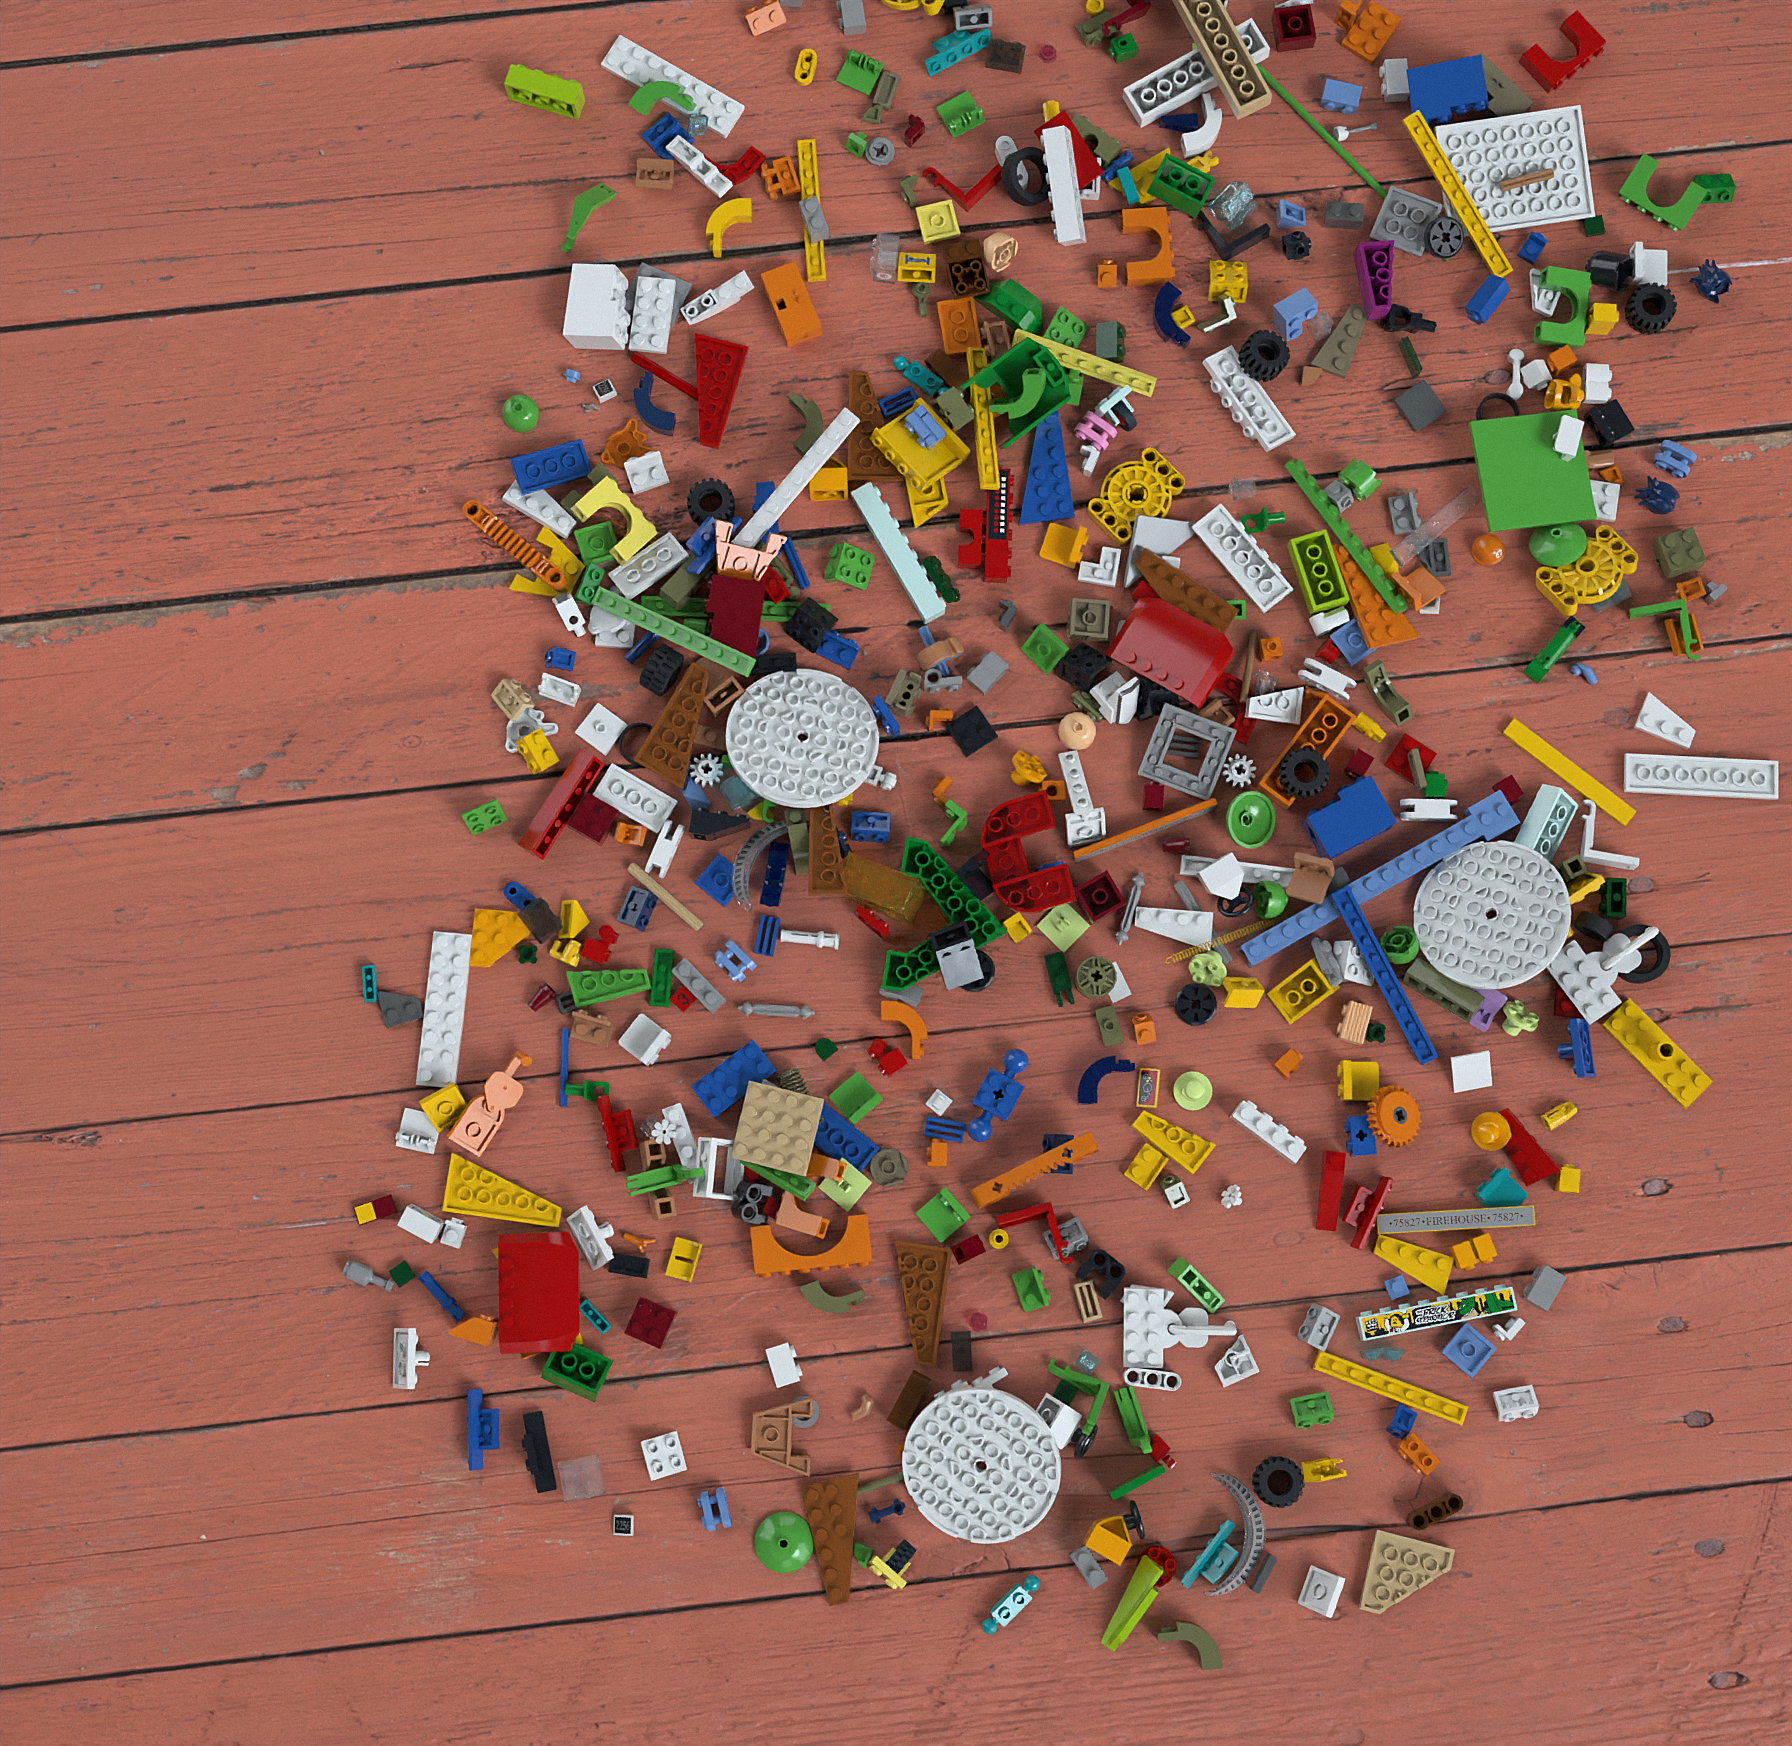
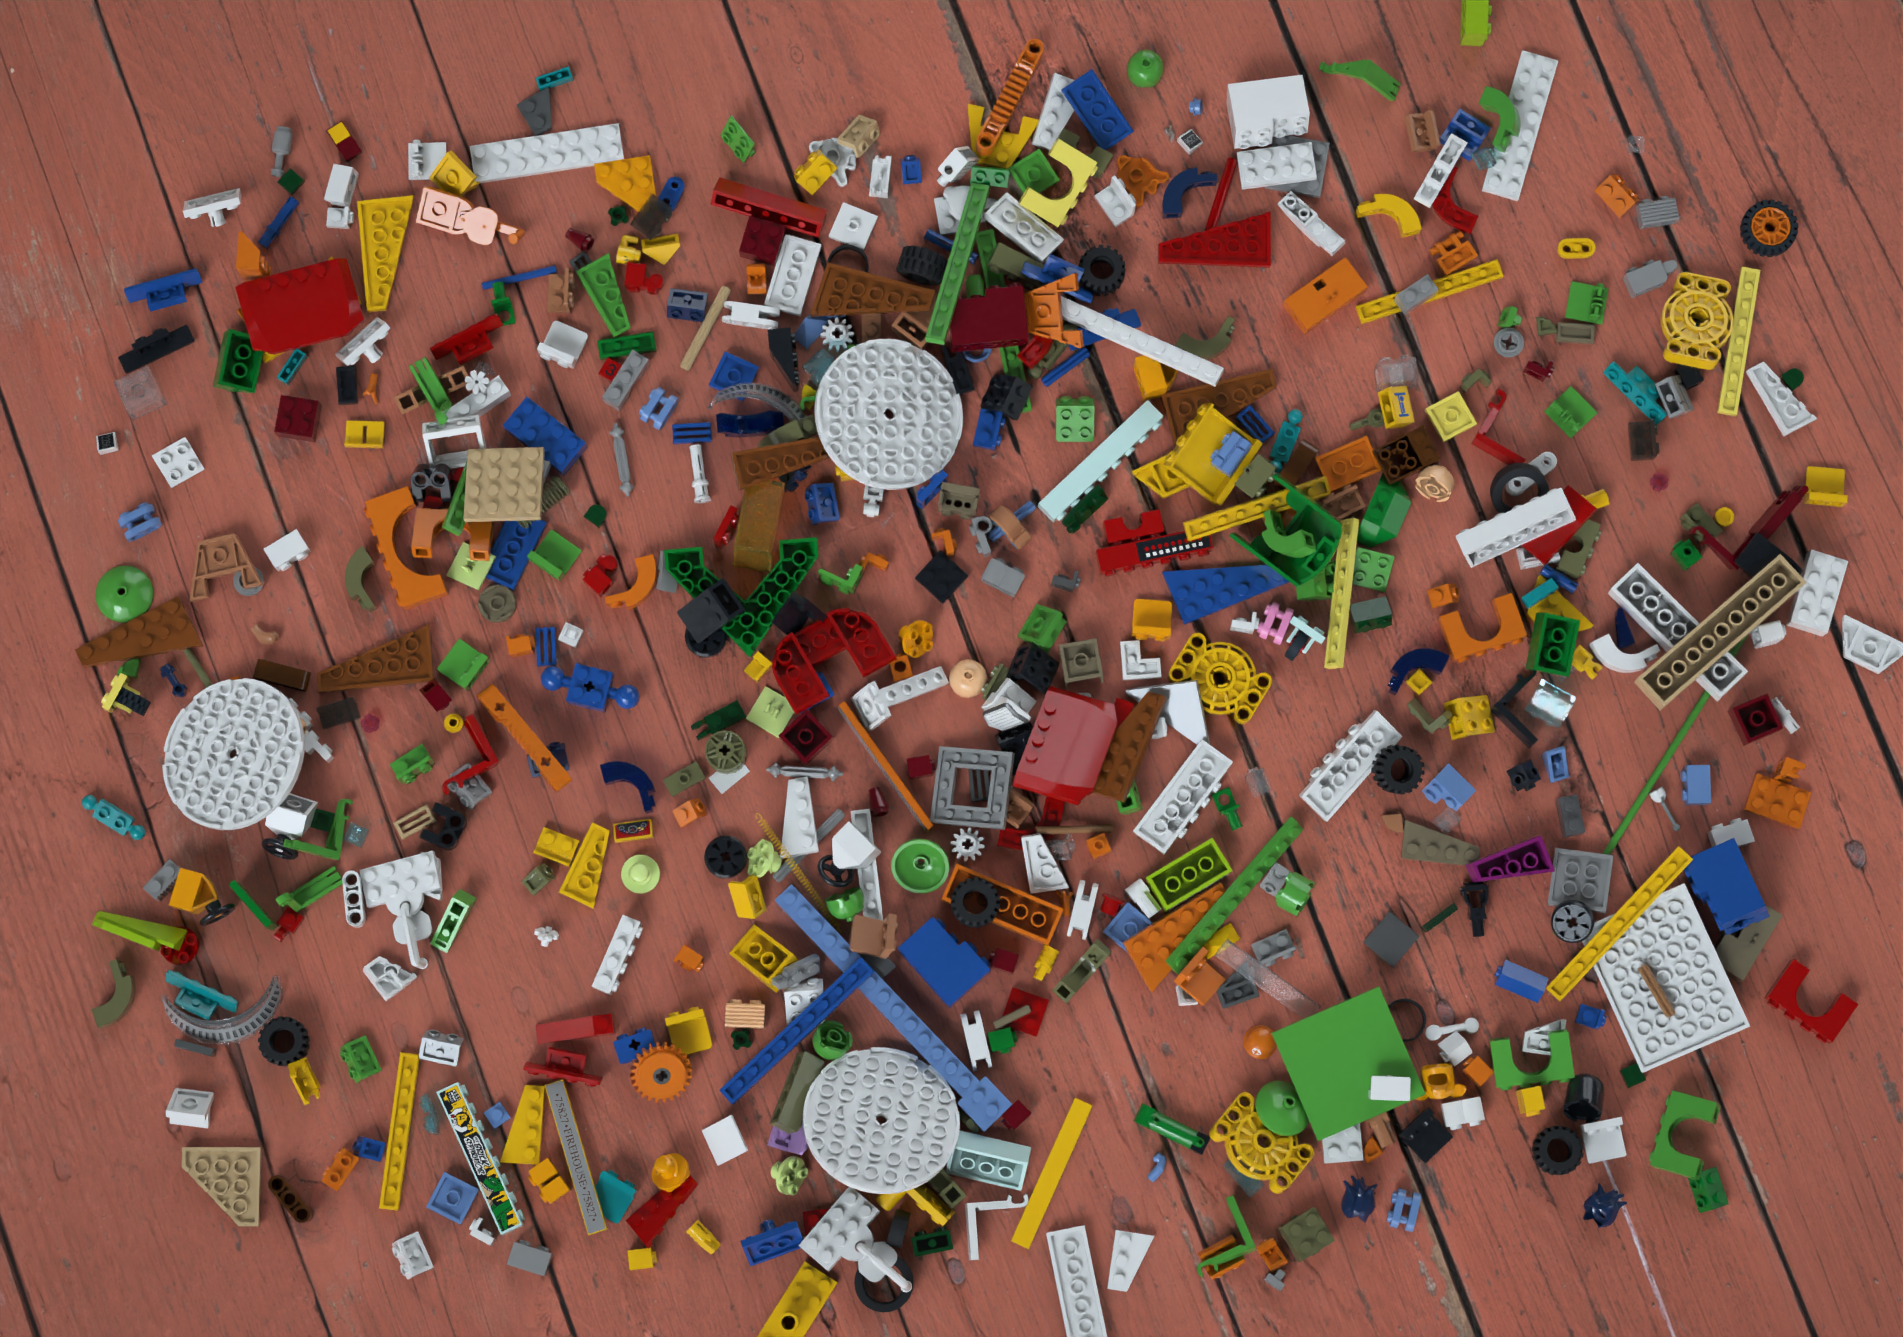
camera: 75 degrees right, 0 degrees up
(1505, 836) = (968, 1122): none -> olive tile

